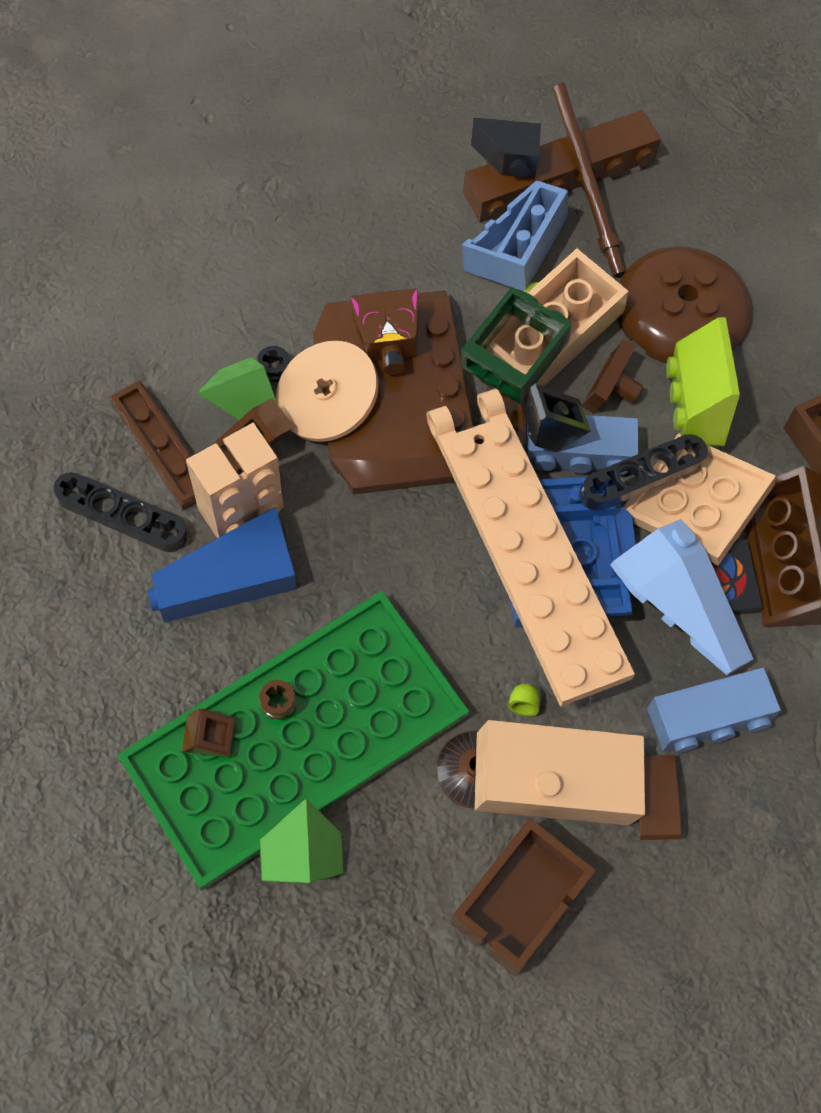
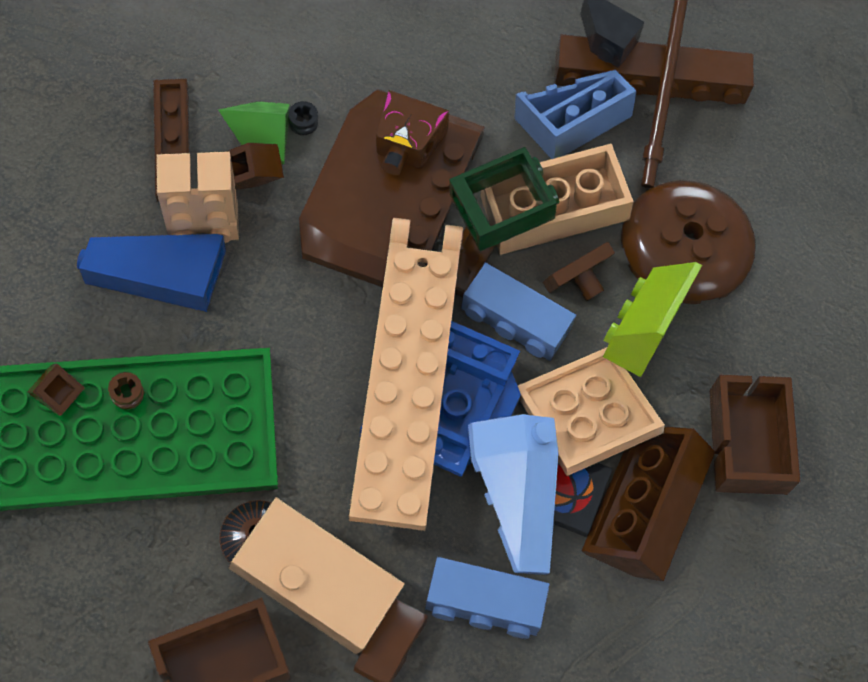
camera: 25 degrees right, 0 degrees up
(117, 516) = (107, 175): black beam -> none
(301, 848) = (70, 521): bright green slope -> none
(351, 383) = (350, 155): light nougat piece -> none
(525, 700) = (332, 501): lime hinge -> none
(554, 418) = (494, 276): black slope -> none
(643, 471) = (549, 368): black beam -> none

